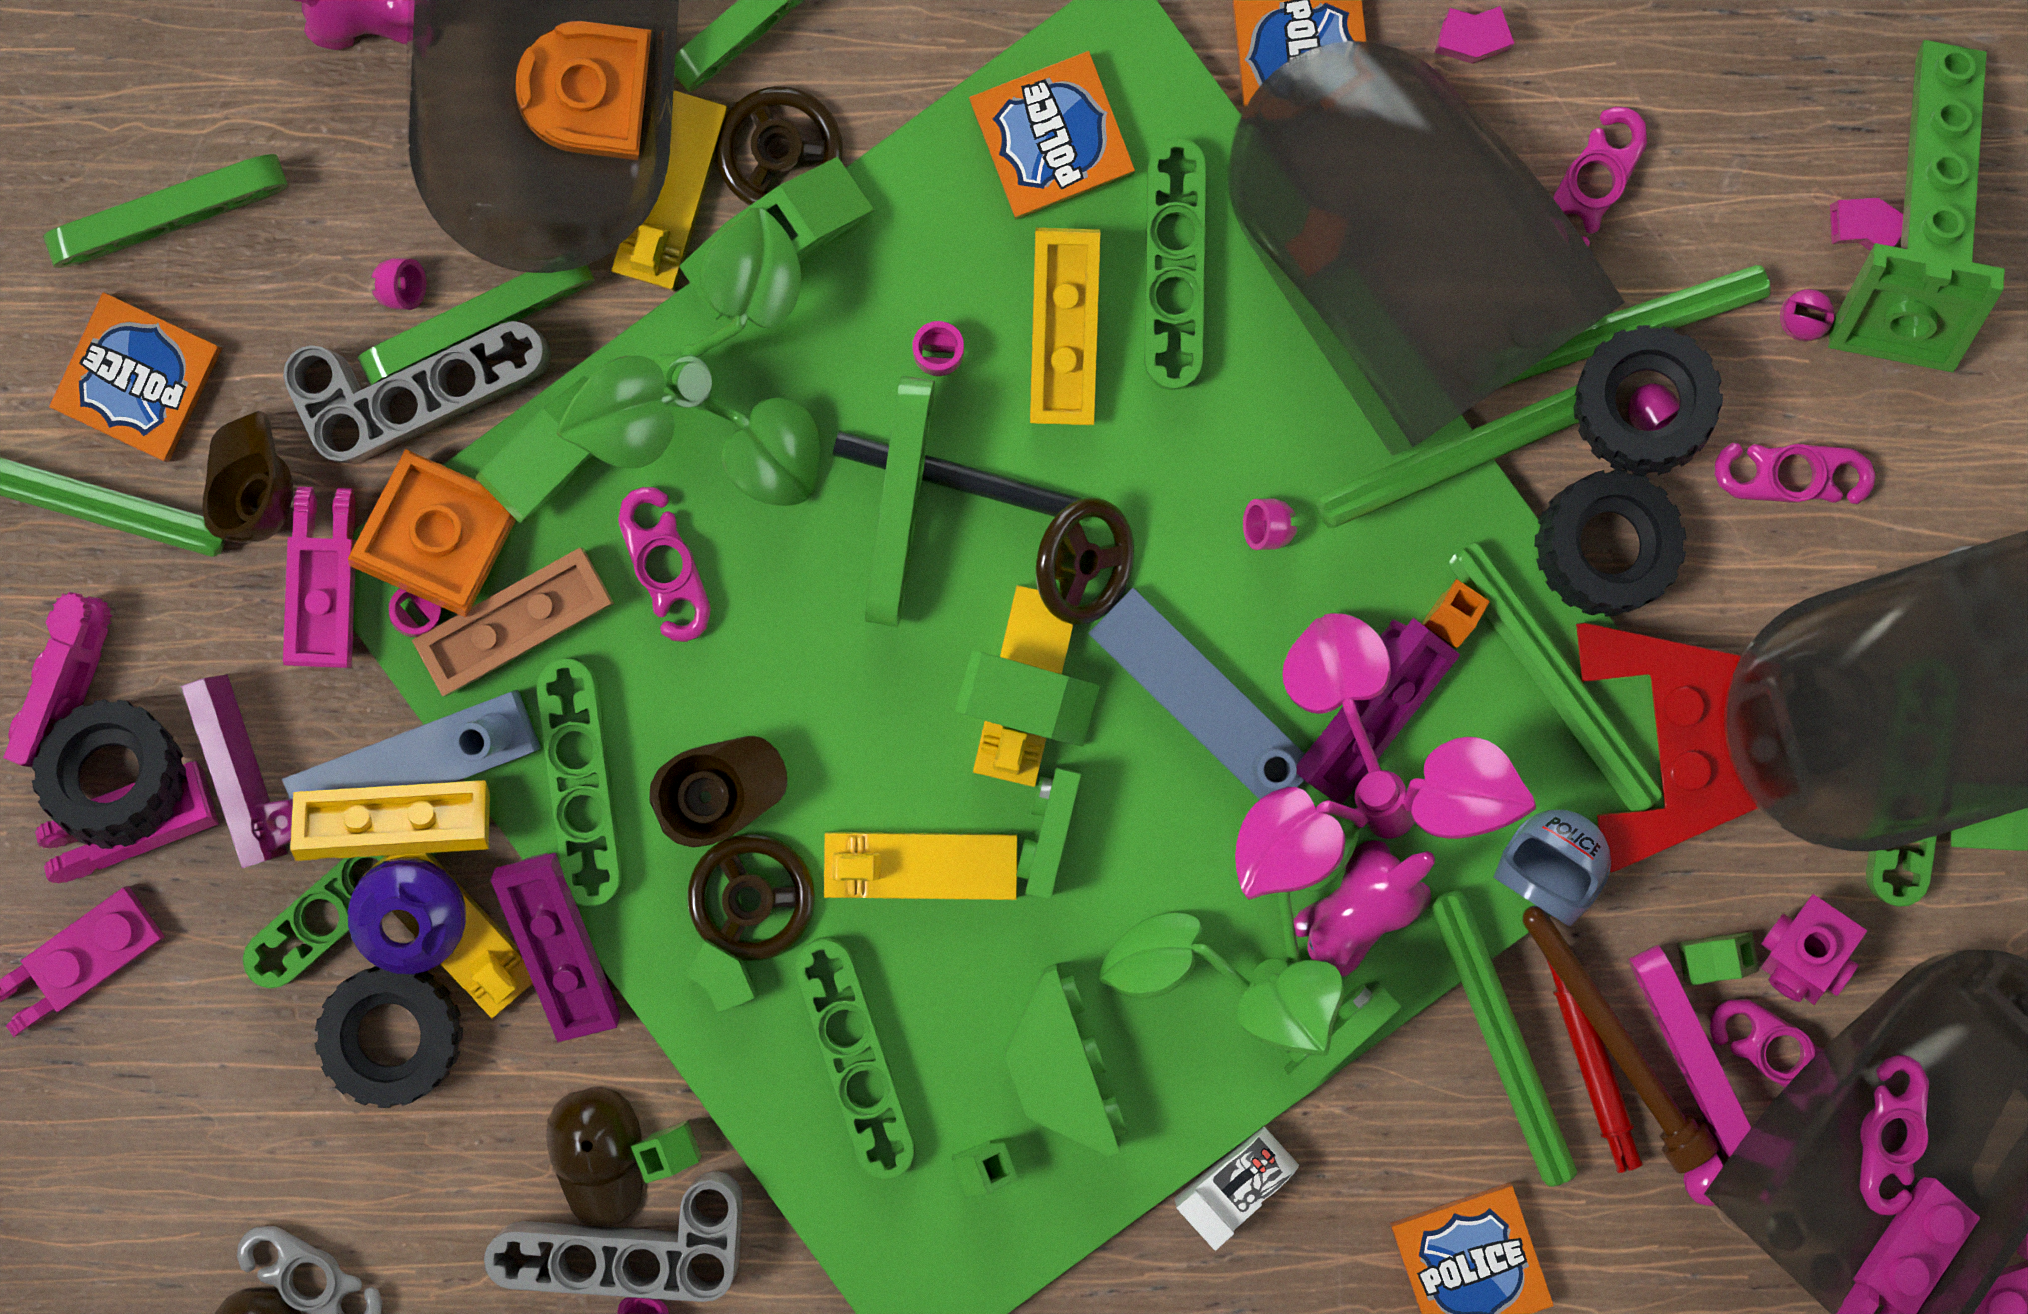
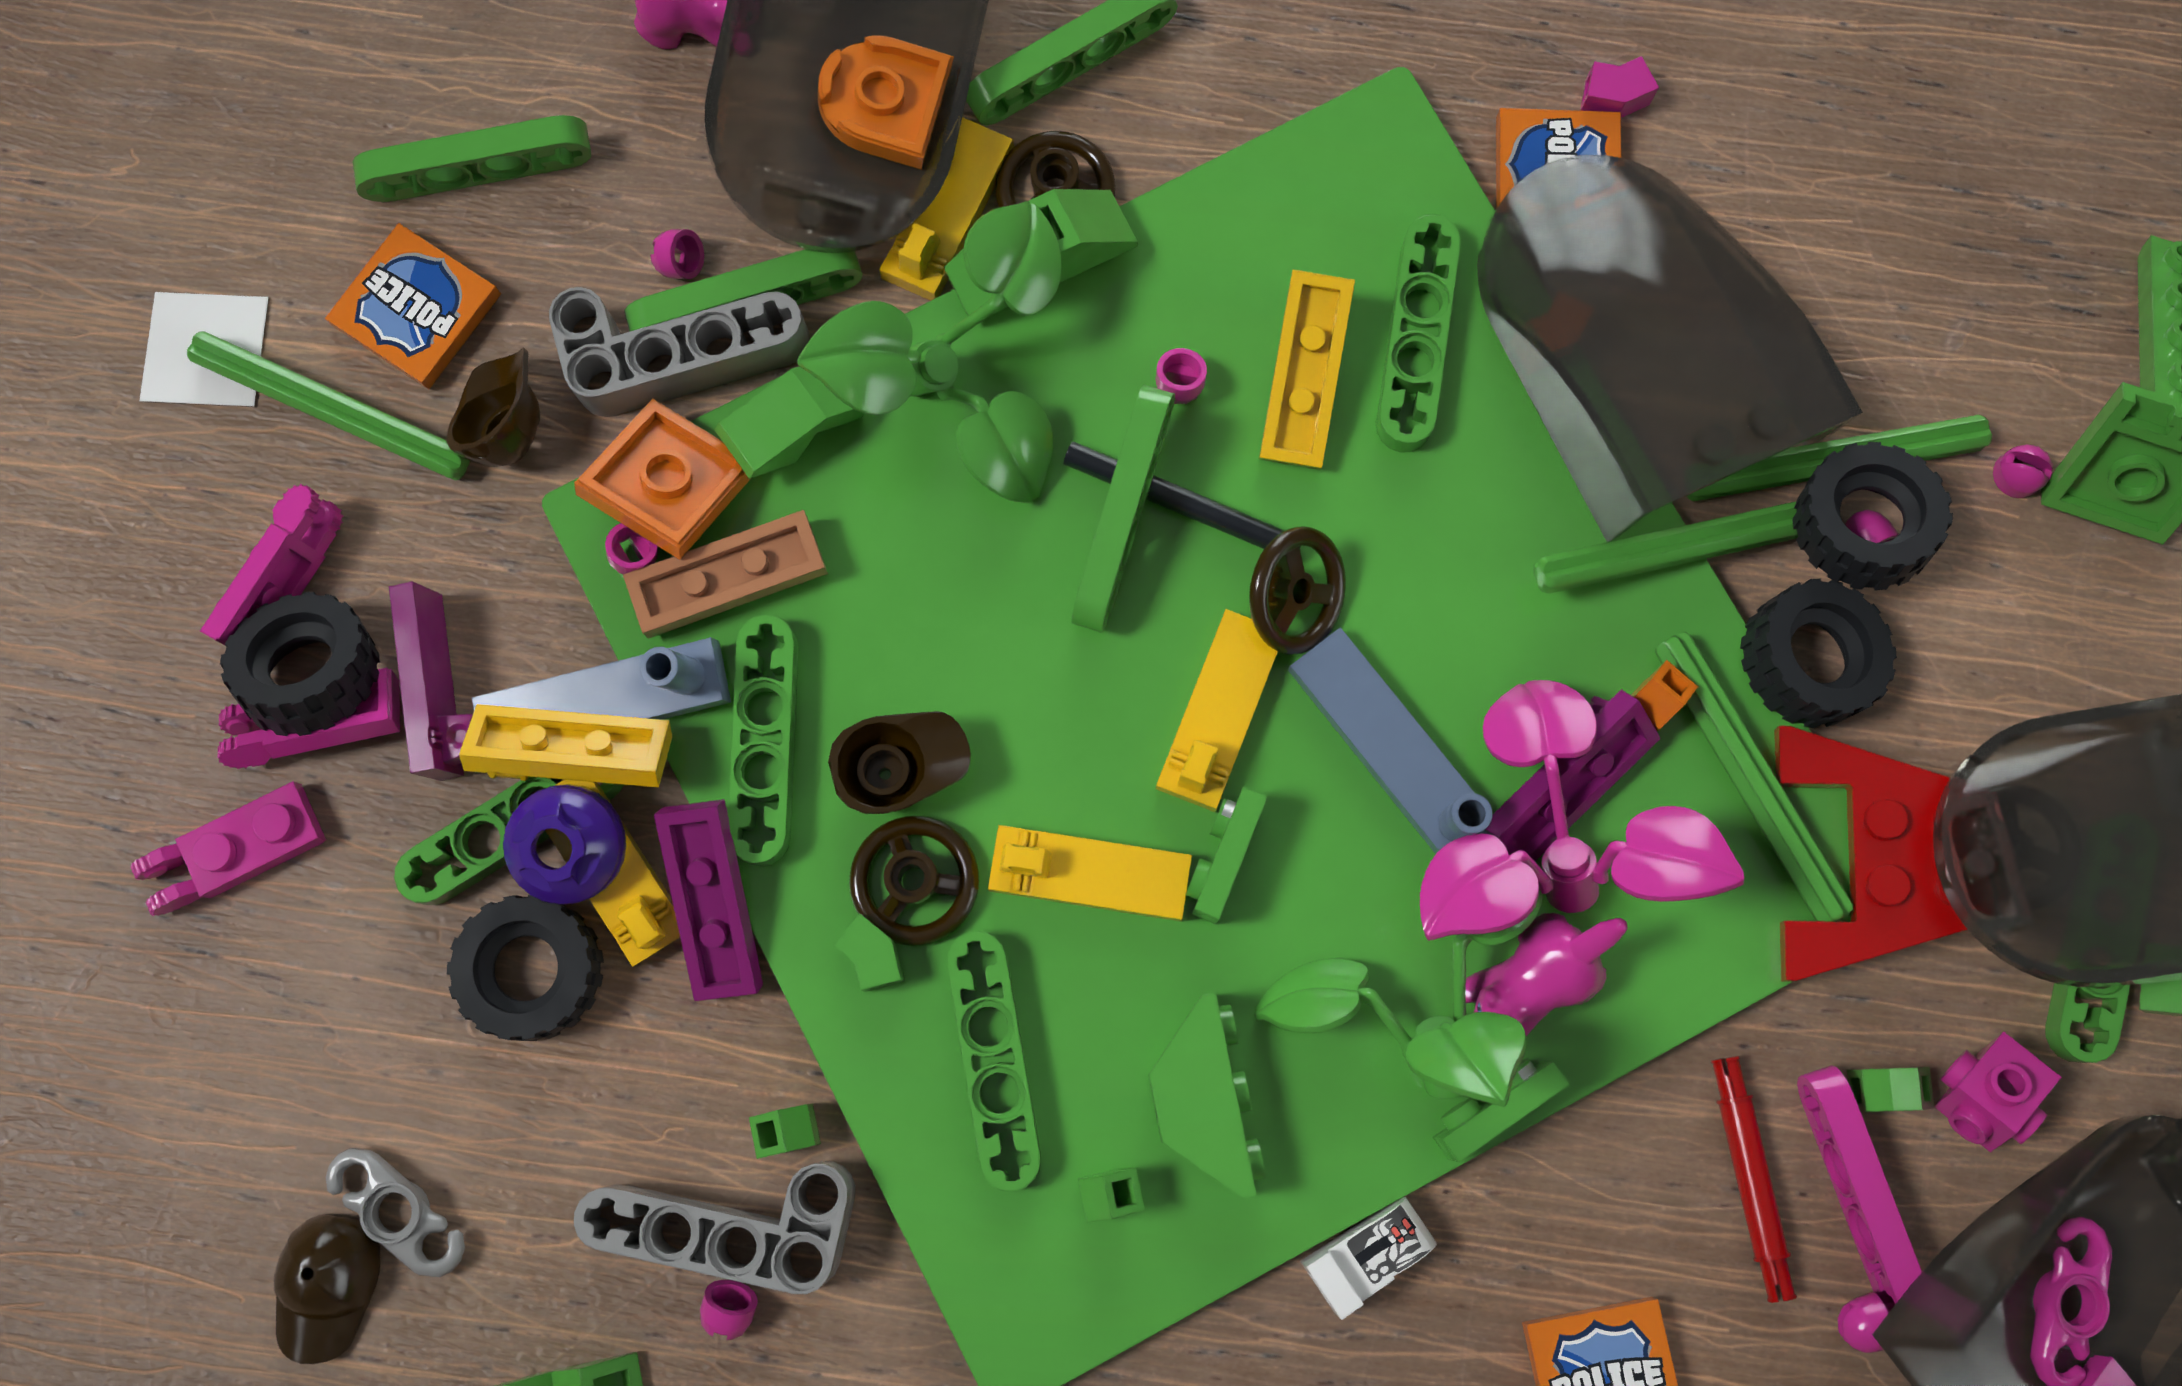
camera: 10 degrees right, 10 degrees down
(320, 585) = (544, 513): dark pink hinge -> none
(599, 1182) = (713, 1150): dark brown cap -> none
(640, 544) = (901, 564): dark pink piece -> none
(1027, 698) = (1222, 713): bright green slope -> none
(1052, 135) = (1316, 201): tile -> none
(1268, 524) = (1481, 585): dark pink hinge -> none
(1474, 36) = (1724, 173): dark pink piece -> none
(1503, 1038) = (1665, 1141): bright green axle -> none
(1557, 863) = (1741, 961): sand blue helmet -> none
(1618, 161) = (1847, 303): dark pink piece -> none
(1685, 1140) = (1844, 1279): reddish brown piece -> none
(1764, 1029) = (1932, 1173): dark pink piece -> none
(1823, 463) = (2028, 609): dark pink piece -> none
(1865, 222) = (2081, 389): dark pink piece -> none

